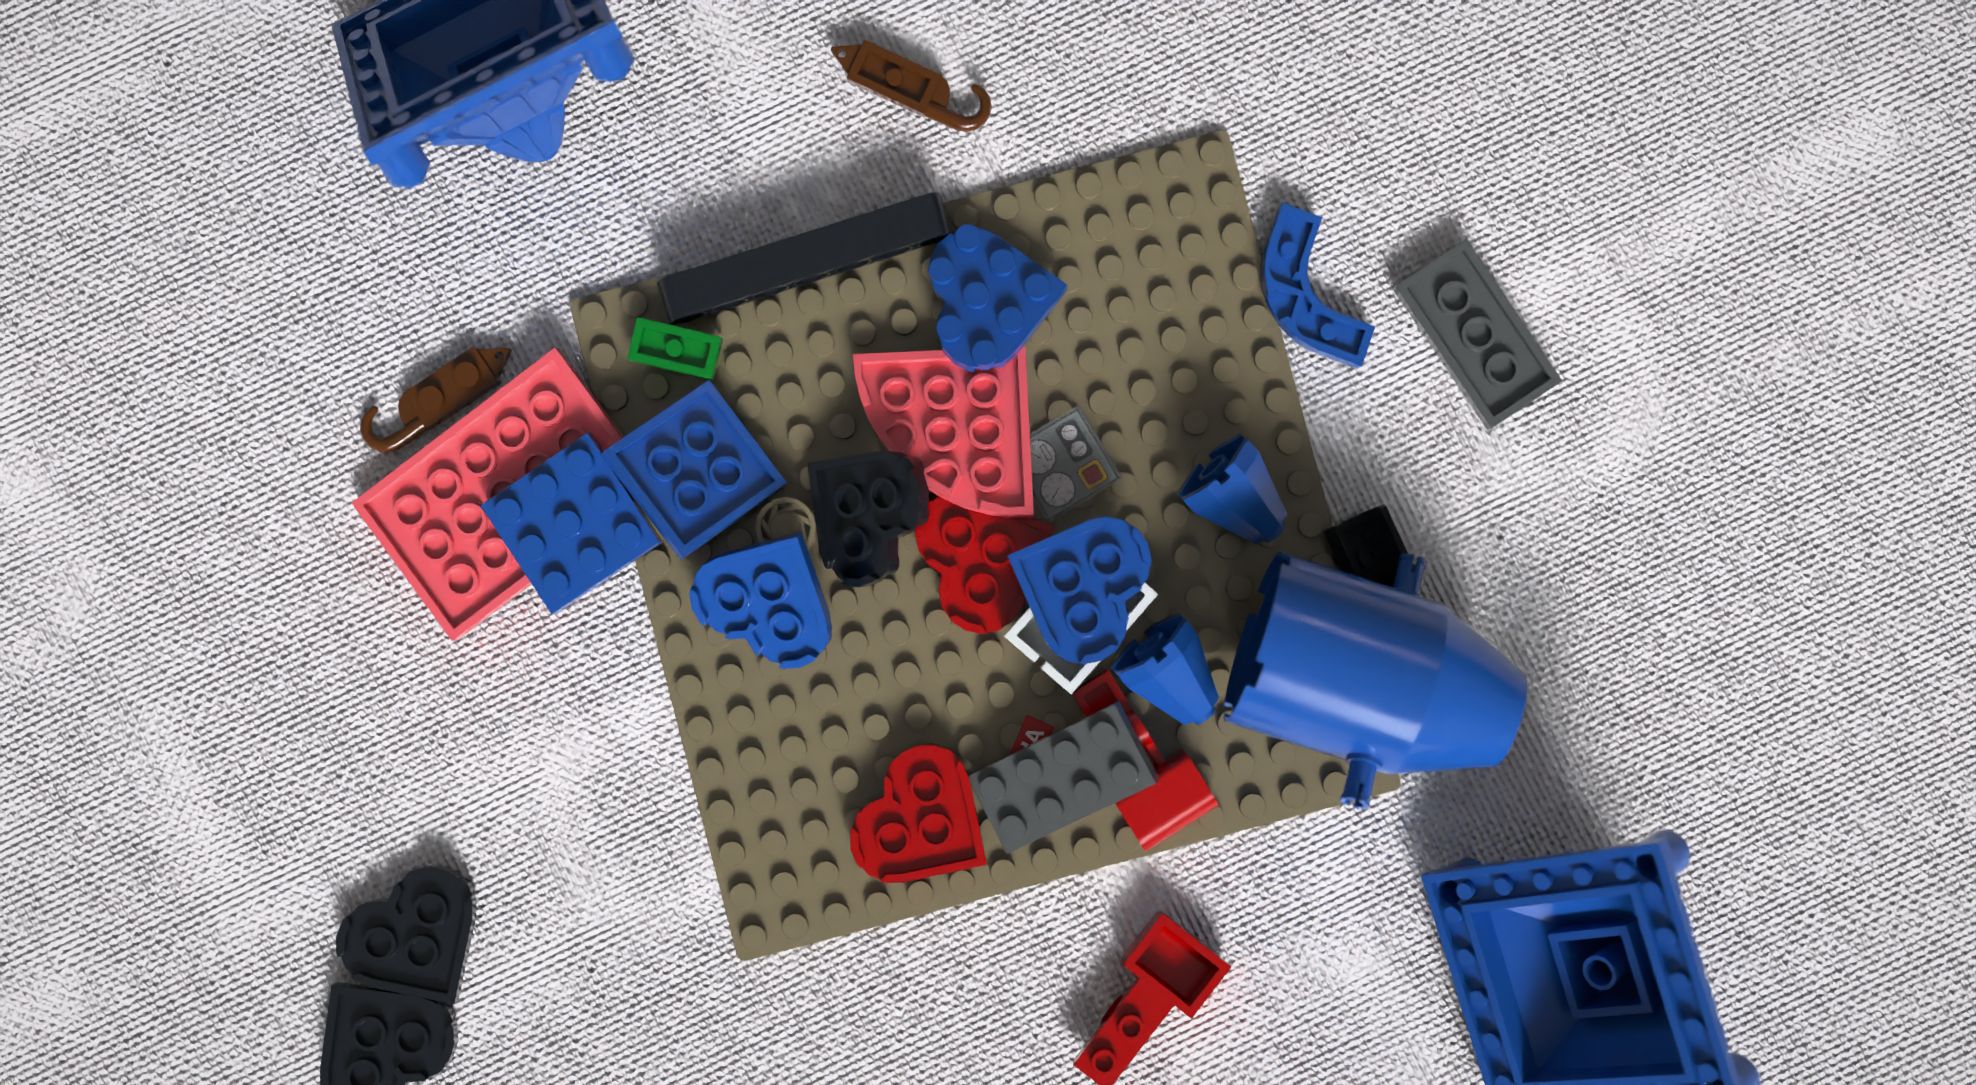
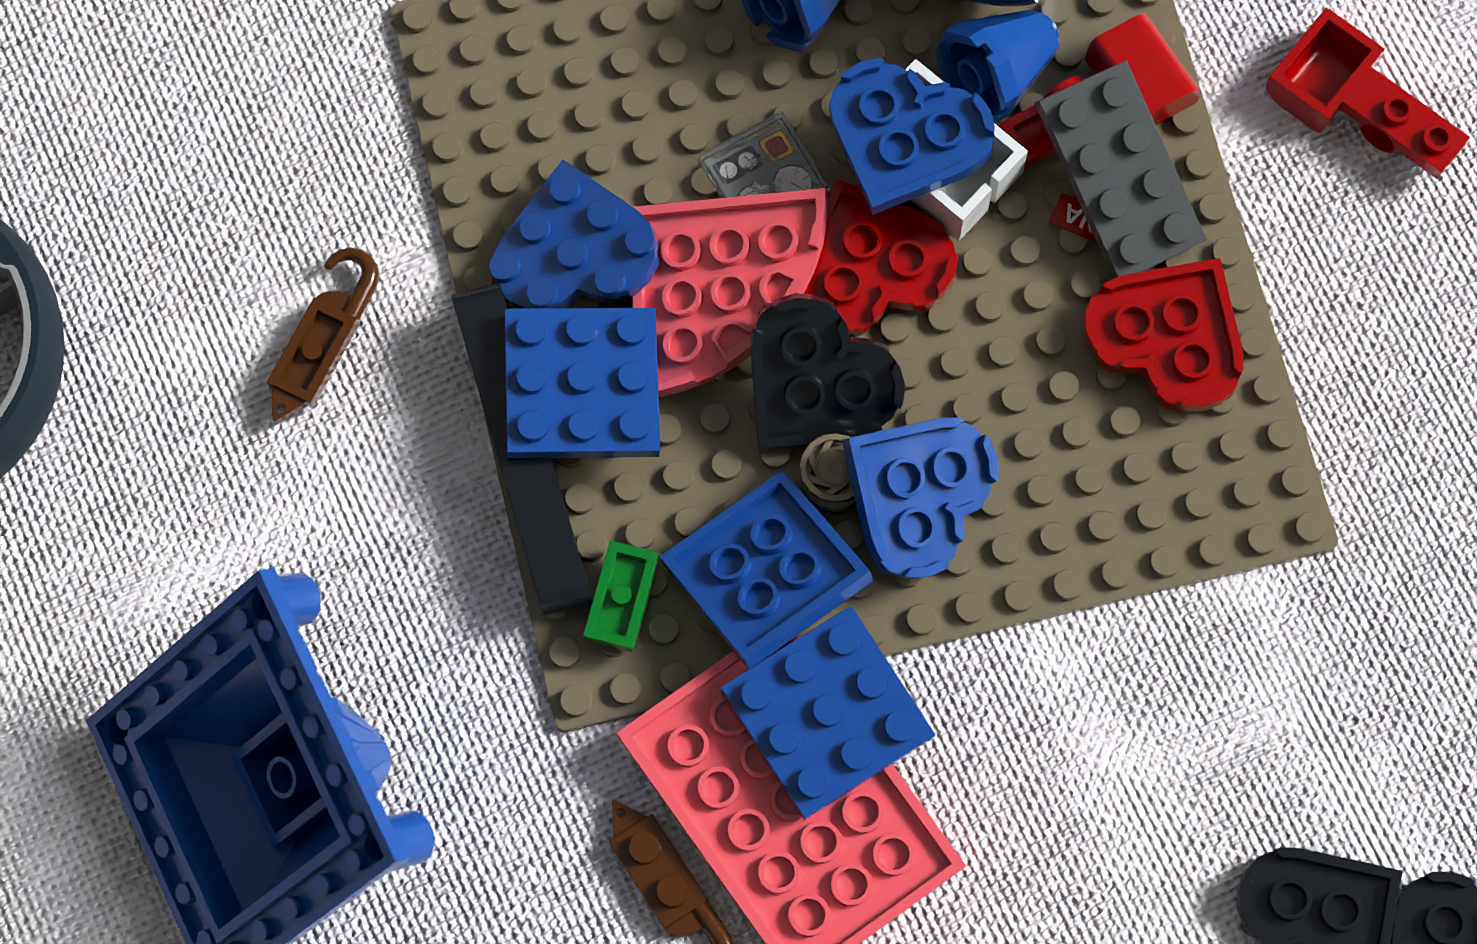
camera: 90 degrees left, 15 degrees down
(854, 306) = (581, 383): none -> blue plate

